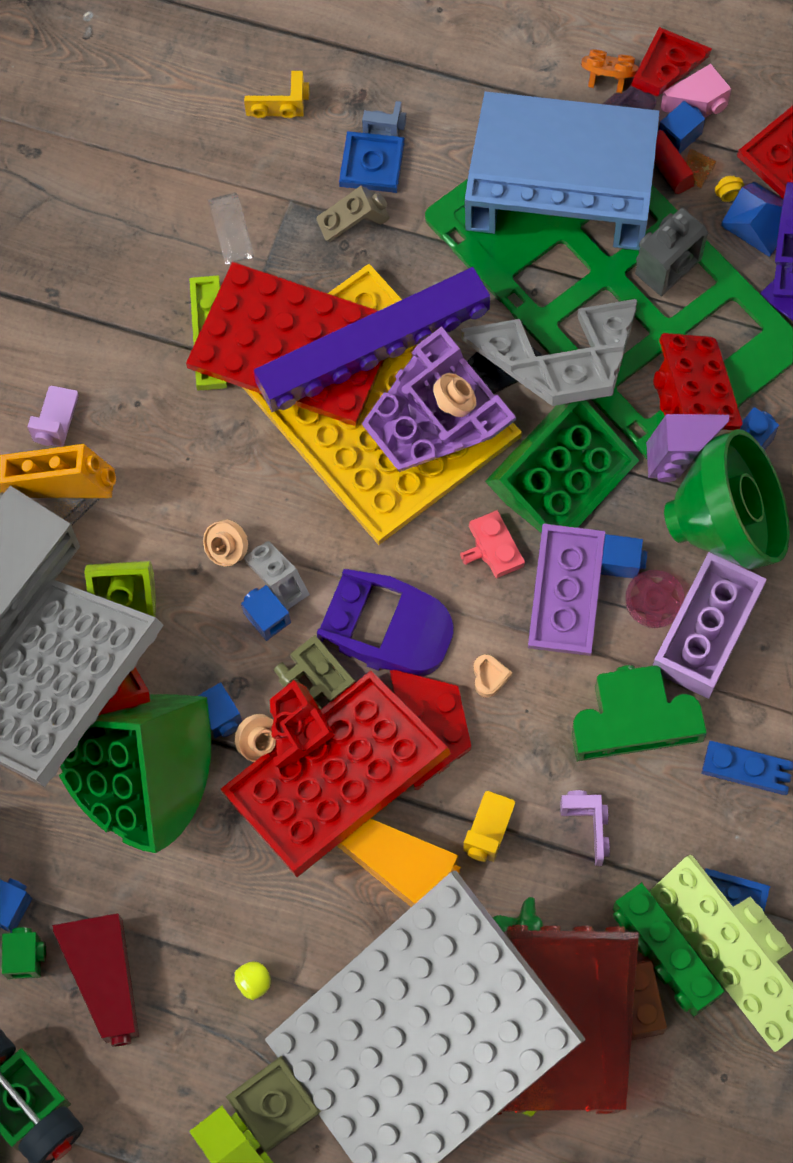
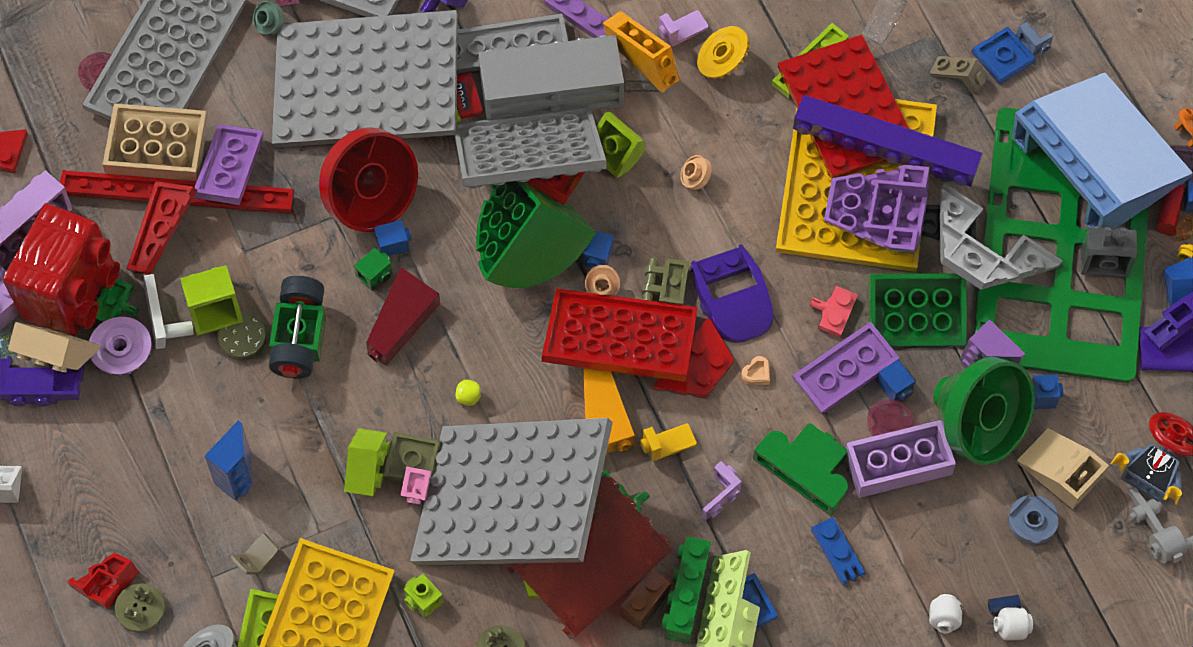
camera: 45 degrees right, 5 degrees down
(122, 402) = (723, 52): none -> yellow gear
(265, 612) = (677, 226): blue brick -> none
(277, 574) = (704, 215): light grey bracket -> none
(297, 724) = (628, 293): red slope -> none
(310, 1127) = (415, 485): none -> bright pink bracket
(454, 395) = (894, 208): light nougat plate -> none
(695, 379) = (1044, 331): red bracket -> none

